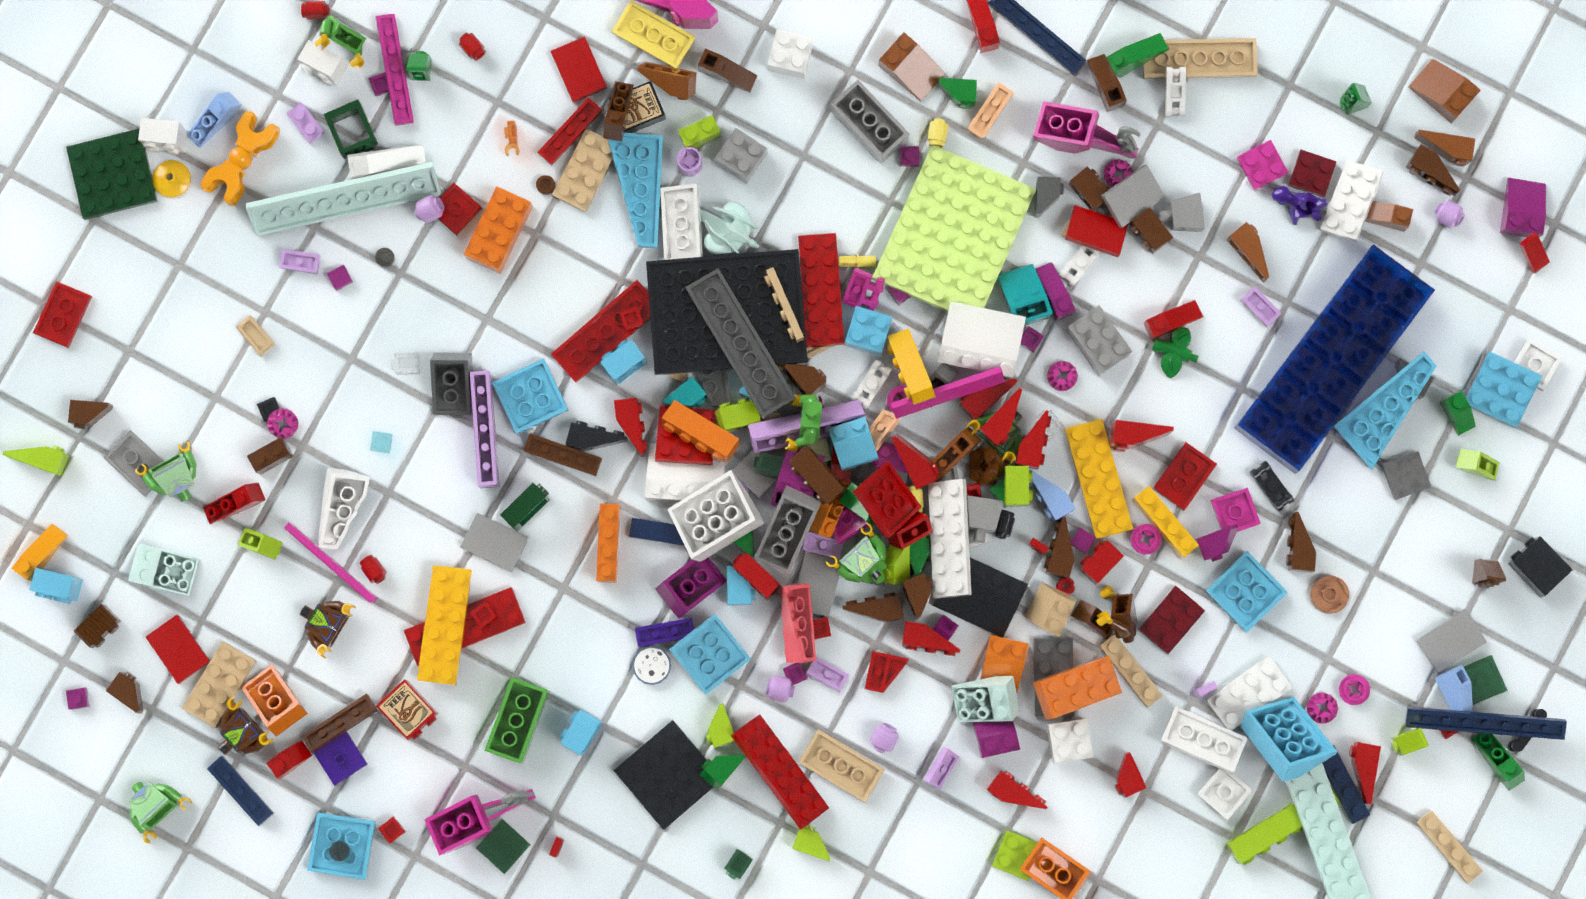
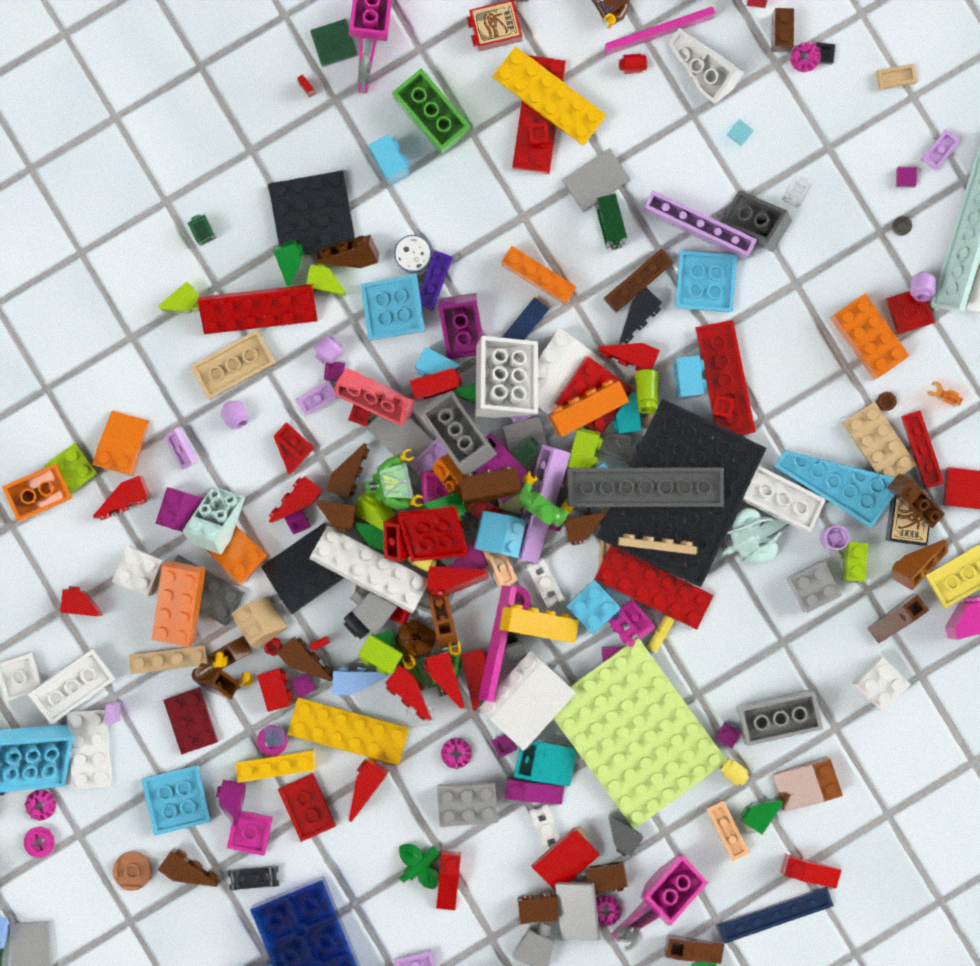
camera: 120 degrees right, 5 degrees up
(655, 391) = (647, 389): none -> lime plant
(683, 717) = (354, 253): none -> reddish brown slope
(968, 823) = (121, 443): none -> orange slope
(1141, 538) = (274, 736): none -> clear light blue tile

